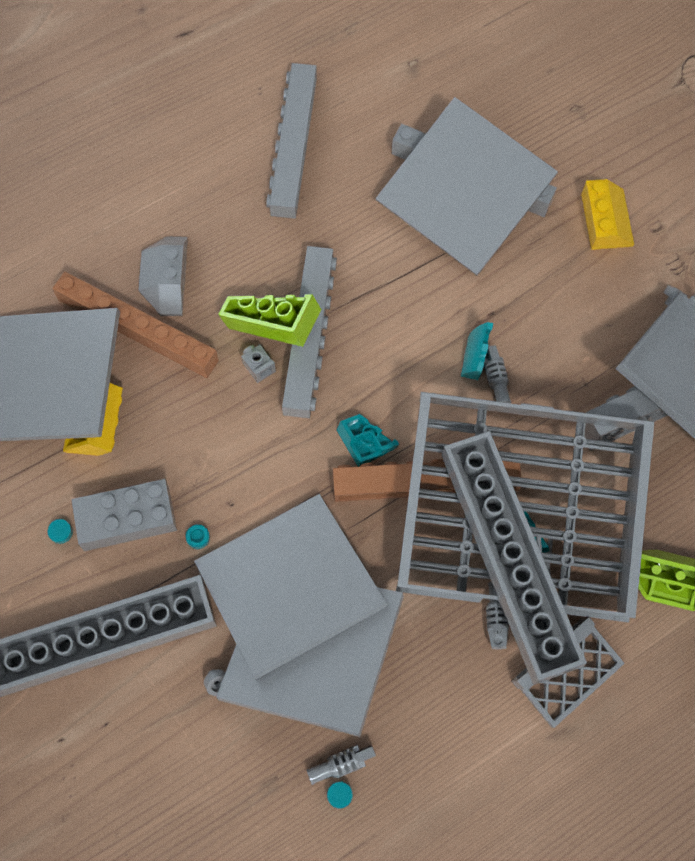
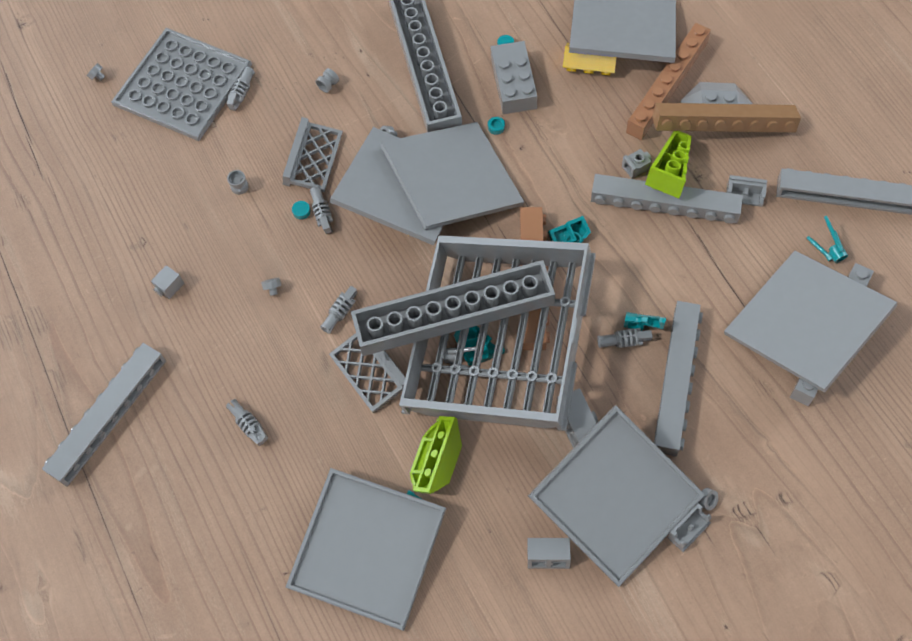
camera: 100 degrees right, 5 degrees down
(120, 782) = (327, 80): none -> light grey wheel
(201, 261) = (725, 117): none -> medium nougat brick
(244, 811) = (297, 155): none -> light grey fence
(294, 246) = (751, 188): none -> light grey hinge
(369, 161) = (837, 251): none -> teal plant
(462, 820) = (271, 284): none -> light grey tile
(490, 720) = (339, 309): none -> light grey hinge
(542, 321) = (677, 377): none -> light grey brick
(606, 215) = (792, 449): yellow slope -> none
(663, 824) = (247, 423): none -> light grey hinge

